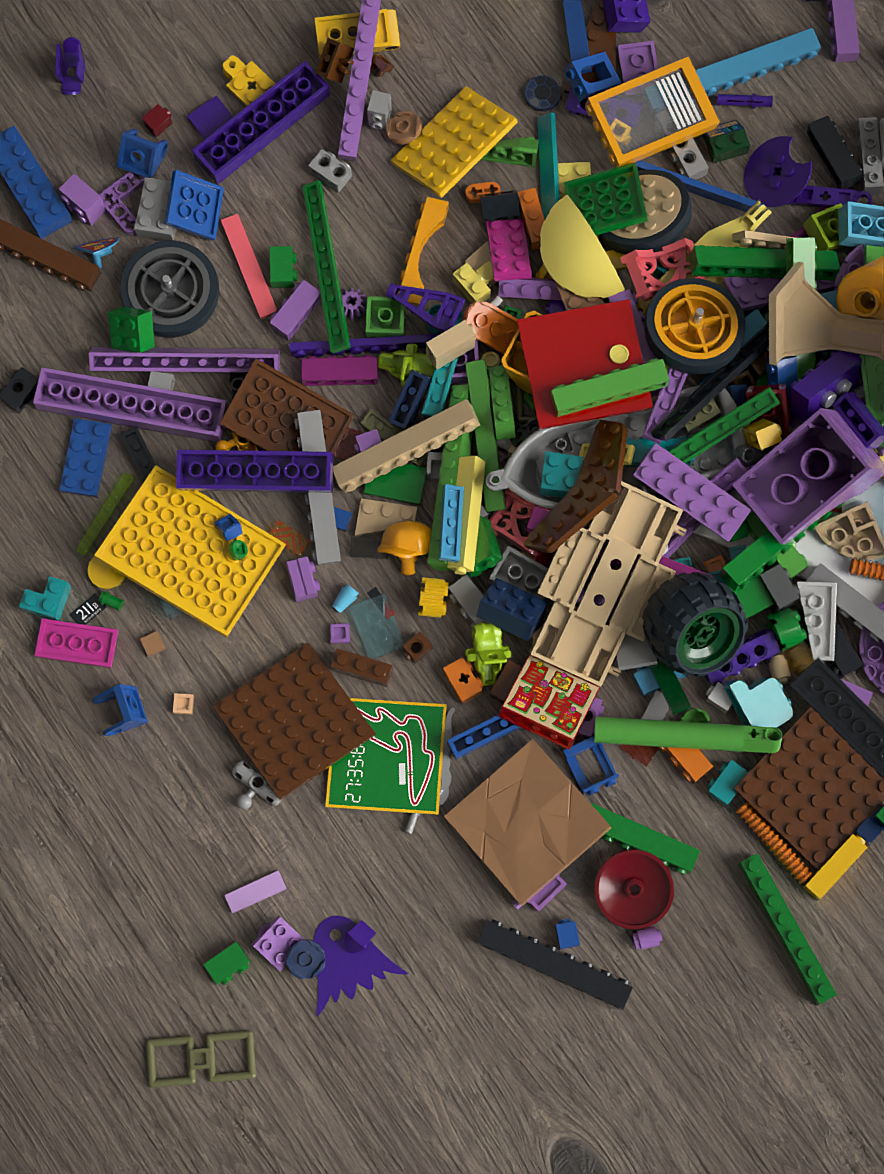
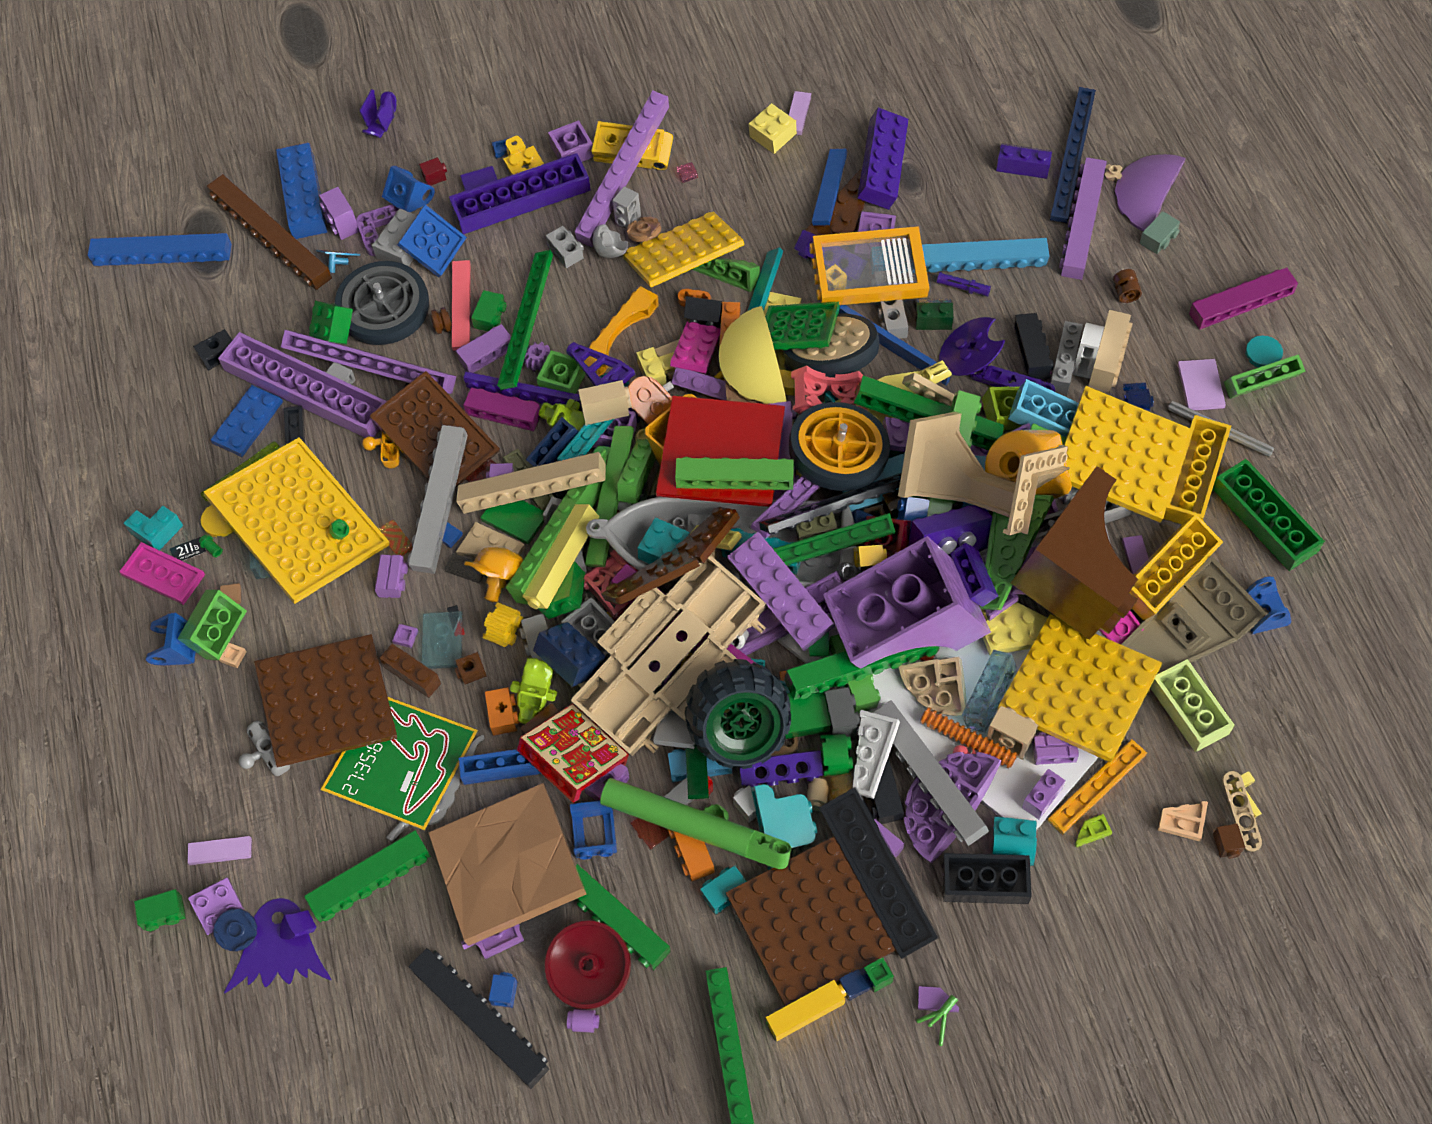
camera: 20 degrees right, 15 degrees down
(155, 682) = (212, 624): none -> bright green brick
(200, 1059) = (93, 997): olive bar -> none
(214, 70) = (499, 148): none -> blue tile
(229, 527) = (341, 509): blue slope -> none
(238, 292) = (441, 320): none -> reddish brown wheel
(254, 471) = (381, 462): dark purple brick -> none
(291, 47) = (571, 140): none -> medium lavender brick
(335, 60) = (600, 157): reddish brown brick -> none
(345, 598) = (423, 604): medium azure cone -> none
(375, 155) = (608, 242): none -> light grey piece
(382, 63) = (645, 177): reddish brown tile -> none
(404, 872) = (367, 876): none -> green brick
(421, 46) = (687, 172): none -> clear pink tile
(451, 523) = (540, 556): dark azure plate -> none
(542, 93) = (779, 234): tile -> none
(604, 70) = (811, 229): blue panel -> none
(619, 354) = (756, 449): light yellow piece -> none
(774, 843) = (751, 966): orange piece -> none

